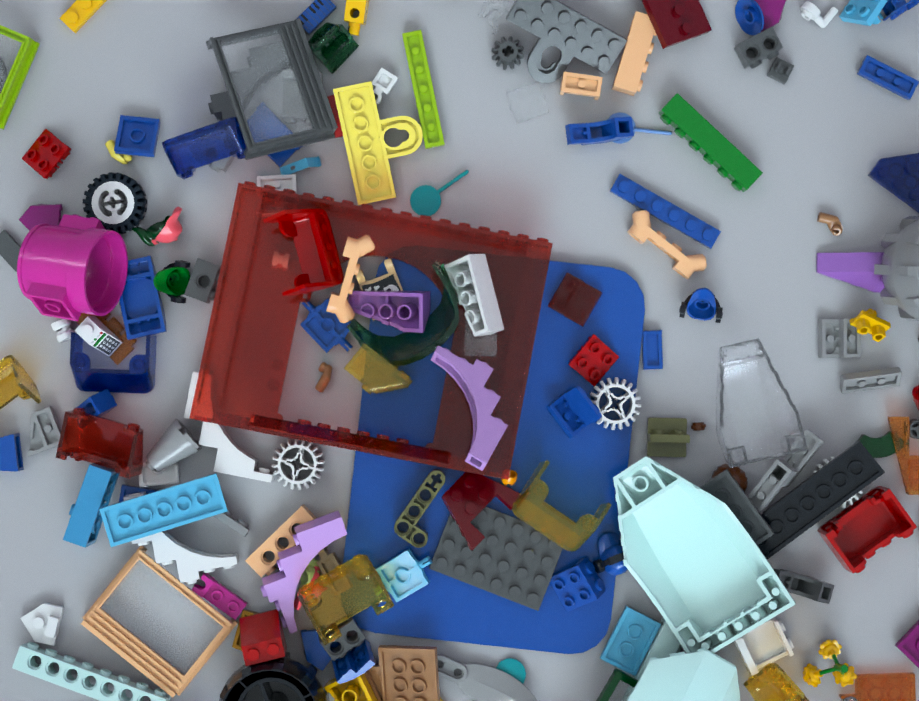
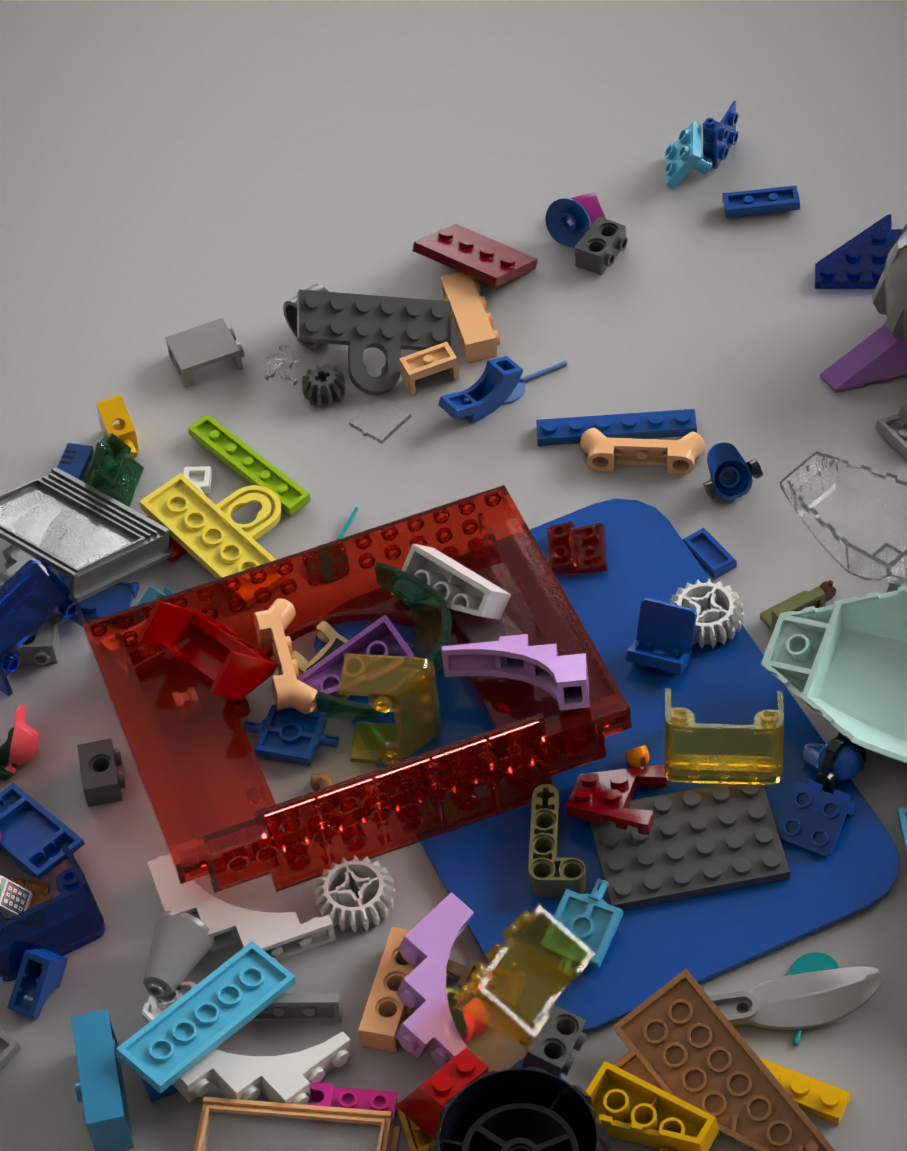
camera: 25 degrees left, 40 degrees down
(102, 442) = (81, 985): clear red windscreen -> none
(173, 280) = (60, 786): green cap -> none
(354, 663) = (595, 1056): blue slope -> none
(593, 360) = (642, 582): red hinge -> none
(710, 143) = (616, 342): green brick -> none
(780, 70) = (641, 254): dark grey tile -> none
(811, 12) = (631, 192): white plate -> none
(832, 221) = (812, 340): medium nougat arm -> none

